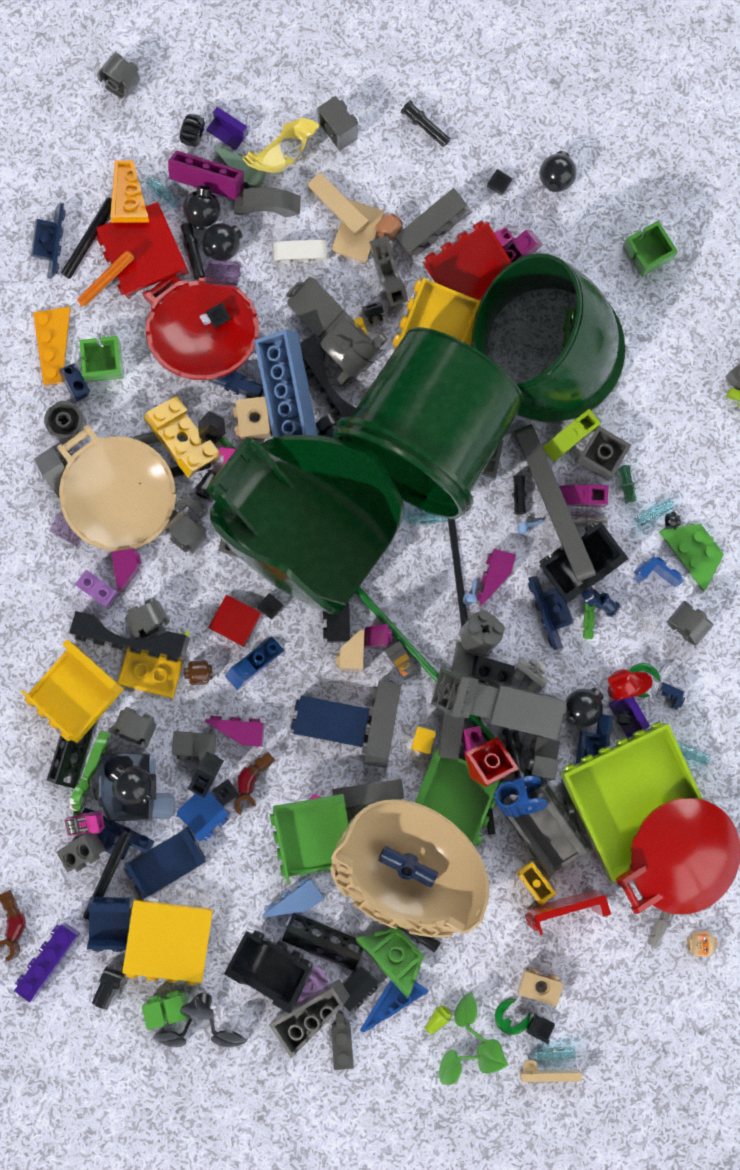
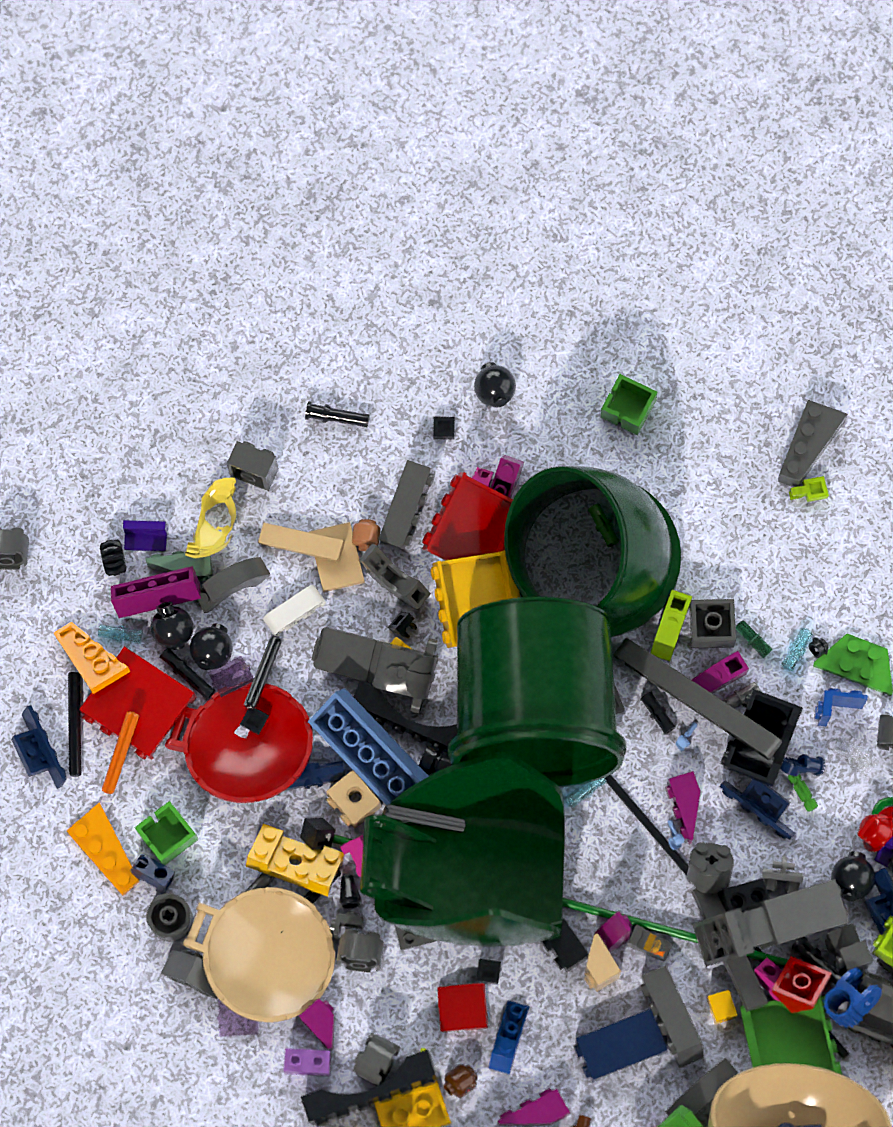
camera: 30 degrees left, 10 degrees down
(246, 284) = (262, 673): none -> black axle
(292, 464) = (424, 818): none -> black axle

